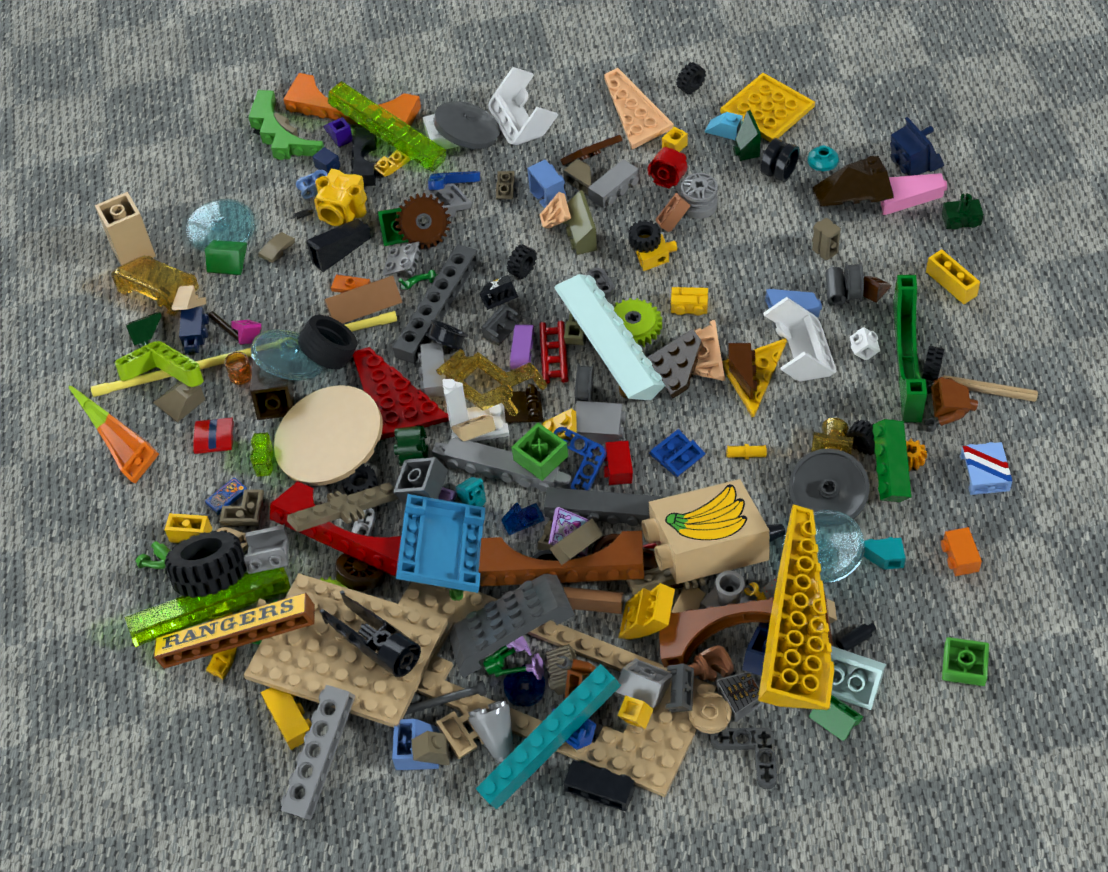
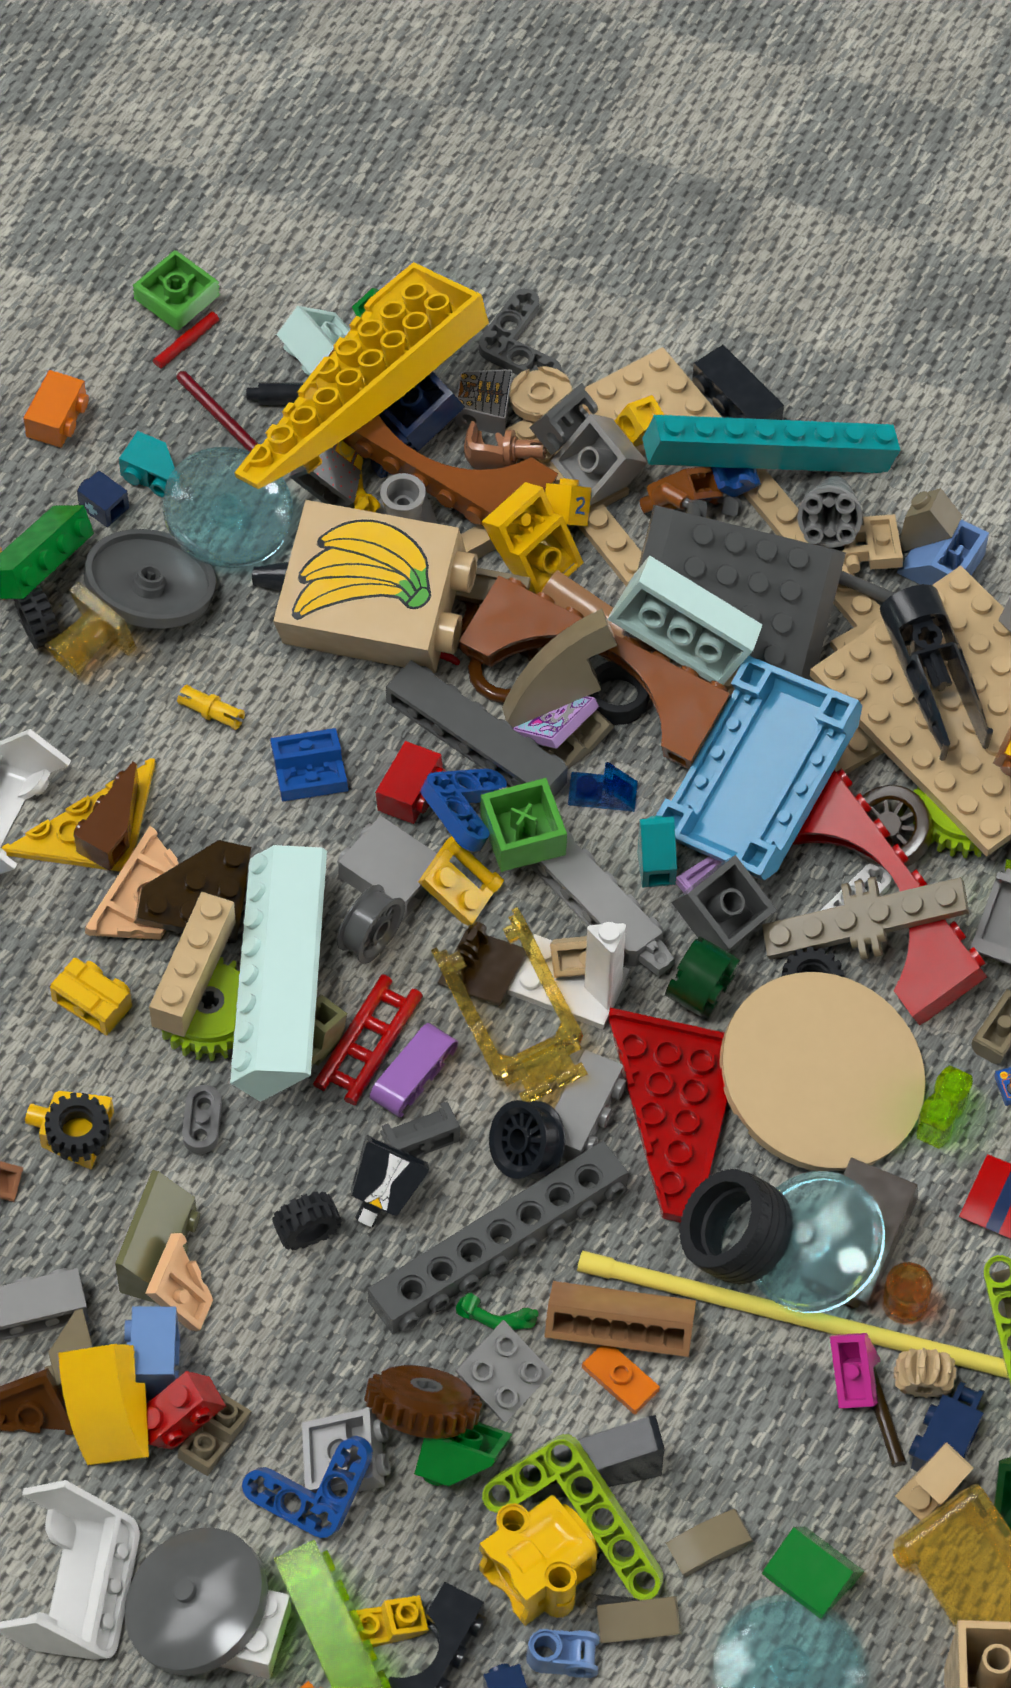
camera: 155 degrees left, 5 degrees up
(213, 341) = (925, 1373): none -> tan gear
(288, 207) = (638, 1619): none -> dark tan slope
(332, 217) = (585, 1505): none -> lime beam
(517, 173) = (182, 1409): none -> red brick
(519, 578) = (685, 621): none -> light aqua slope
(557, 157) = (105, 1403): none -> yellow slope
(644, 648) = (570, 501): none -> yellow brick
(648, 316) = (192, 964): none -> tan brick
(833, 593) = (216, 410): none -> dark red piece
(893, 520) = (103, 498): none -> dark blue brick
(936, 642) = (186, 340): none -> red piece

